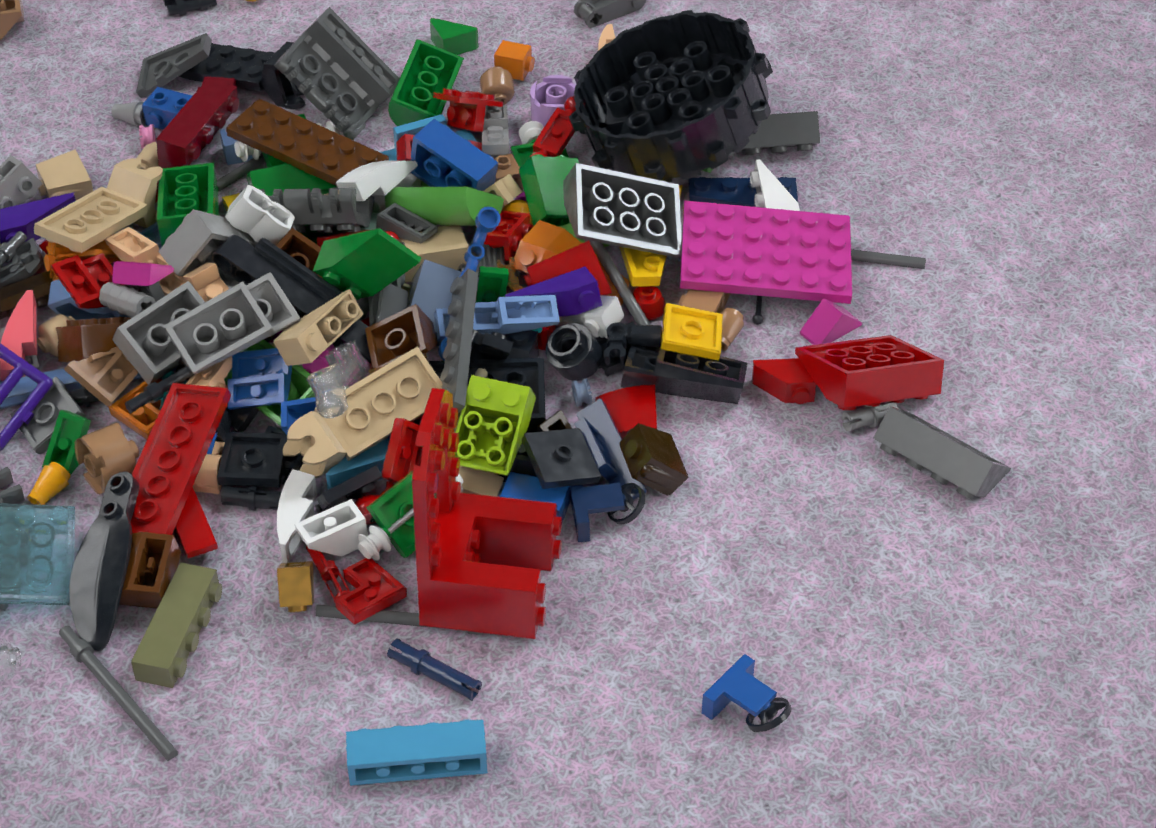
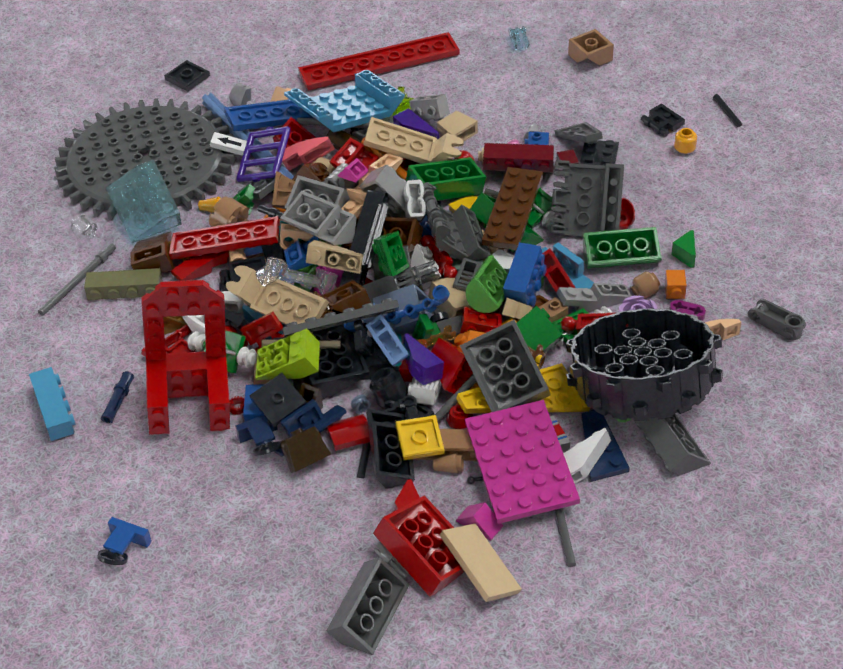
camera: 75 degrees right, 0 degrees up
(103, 563) = (157, 234): black plant -> none
(376, 177) = (489, 242): white slope -> none
(467, 108) = (603, 270): red bracket -> none
(559, 64) = (688, 308): none -> magenta beam
(683, 413) = (364, 460): none -> black bar
(909, 330) = (480, 562): none -> tan tile

